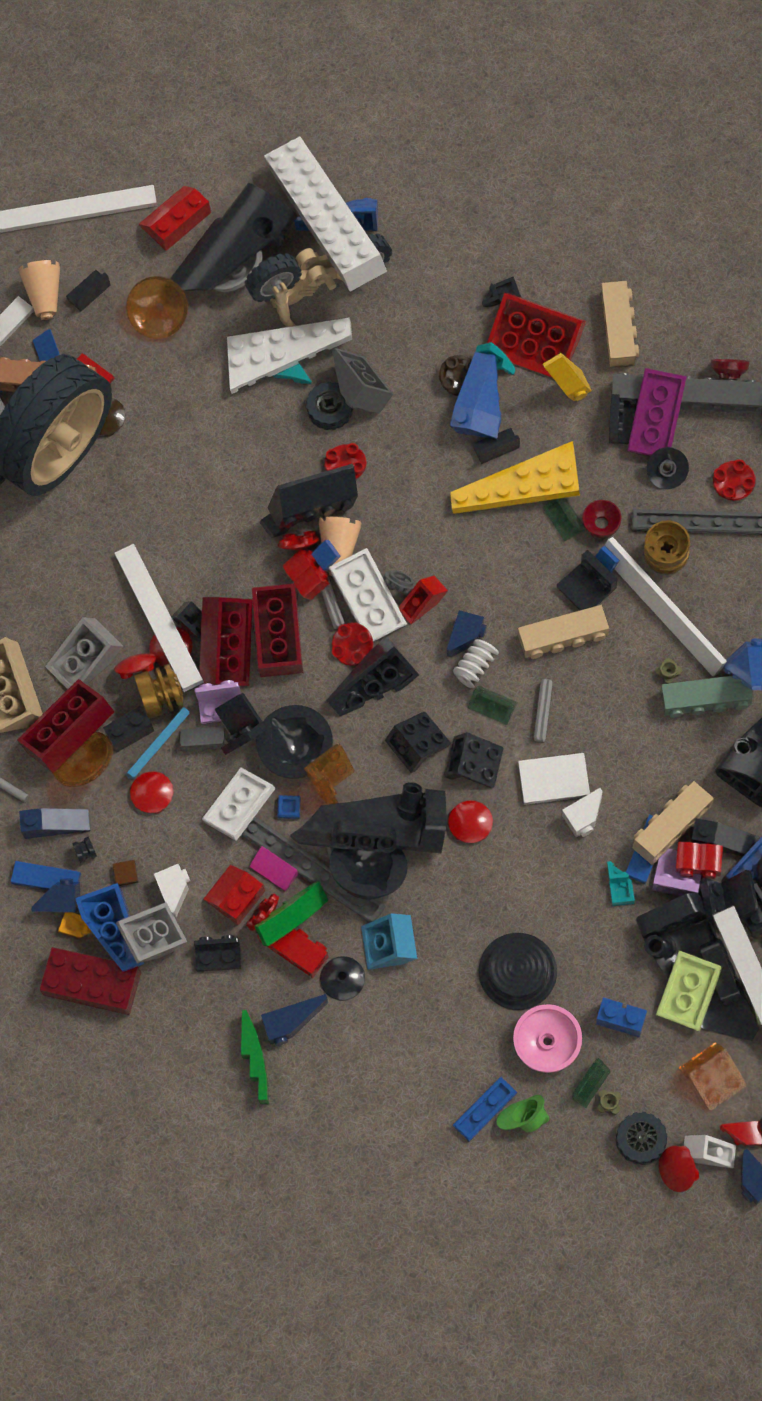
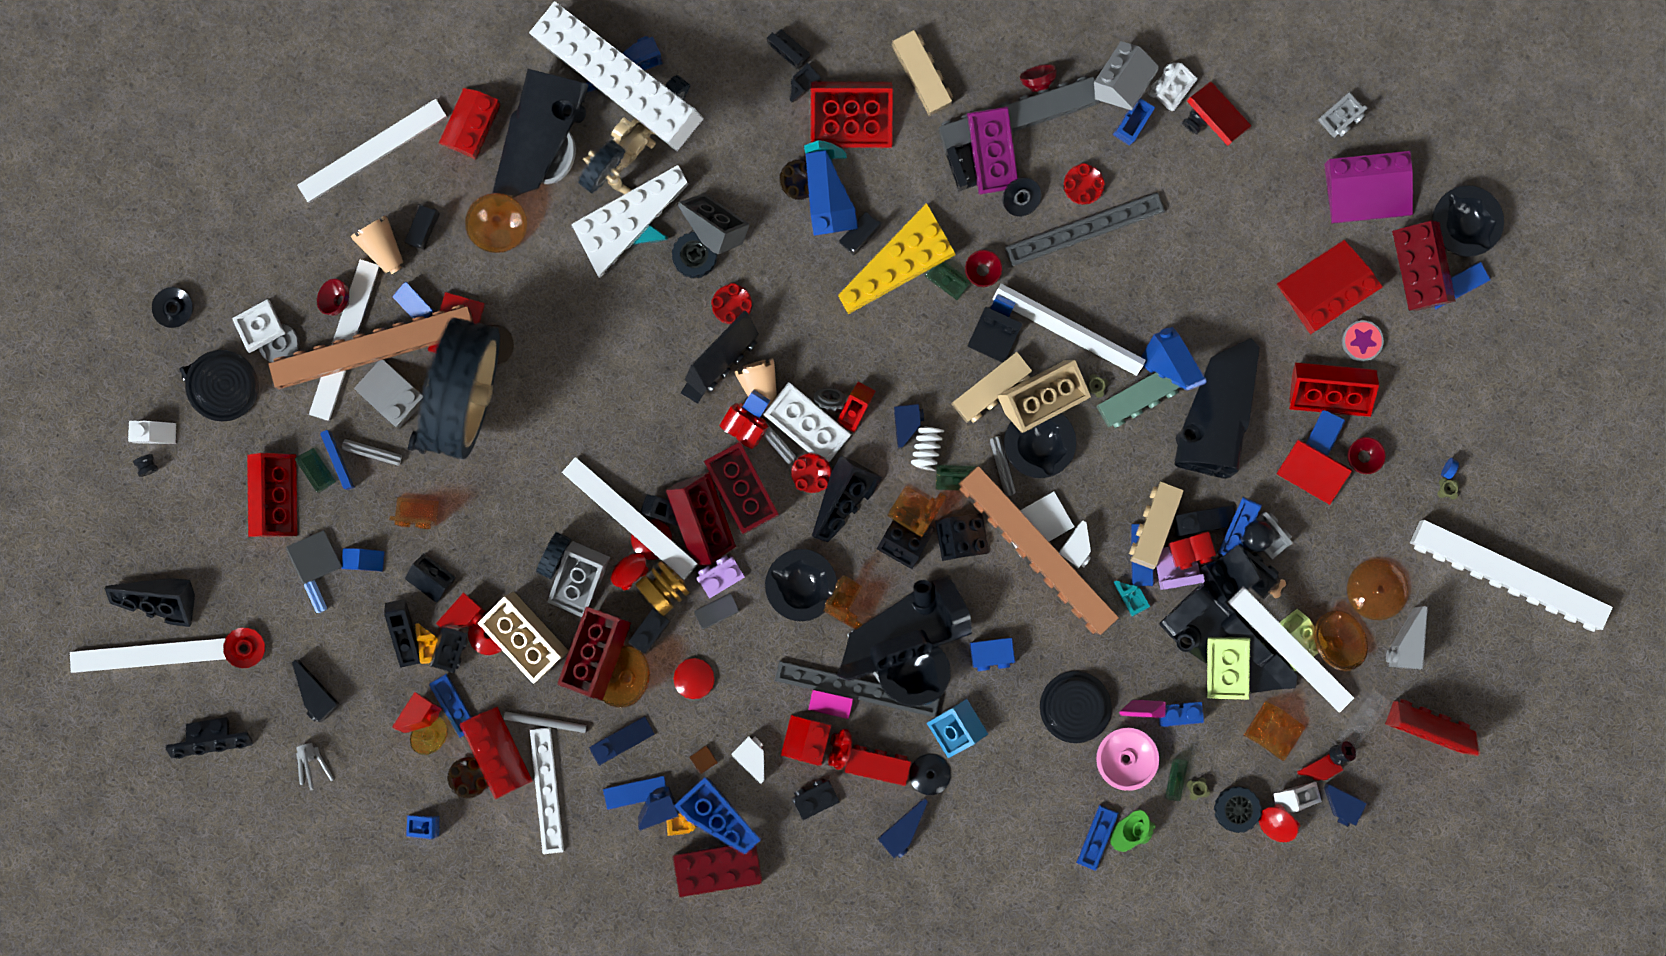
camera: 35 degrees left, 15 degrees up
(67, 618) = (553, 555): none -> black wheel
(84, 849) = (659, 755): black wheel -> none
(152, 933) = (755, 810): light grey slope -> none
(158, 742) = (680, 634): dark azure tile -> none
(238, 804) = (775, 659): white tile -> none
(240, 721) = (750, 588): black bracket -> none
(252, 1050) = (883, 870): green slope -> none
(289, 807) = (819, 642): blue tile -> none
(291, 914) = (868, 742): green slope -> none
(293, 542) = (723, 397): red dish -> none
(438, 717) = (915, 510): none -> clear orange bracket
(455, 882) = (992, 653): none -> blue piece
(470, 821) = (981, 592): red dish -> none
(499, 257) = (788, 48): none -> black bracket
(543, 801) = (1038, 550): none -> nougat brick
(568, 377) = (902, 148): yellow slope -> none
(585, 996) = (1144, 708): none -> dark pink slope
(589, 698) = (1042, 449): none -> black piece
(611, 653) = (1044, 395): none -> tan slope
(670, 536) = (1056, 263): pearl gold wheel -> none

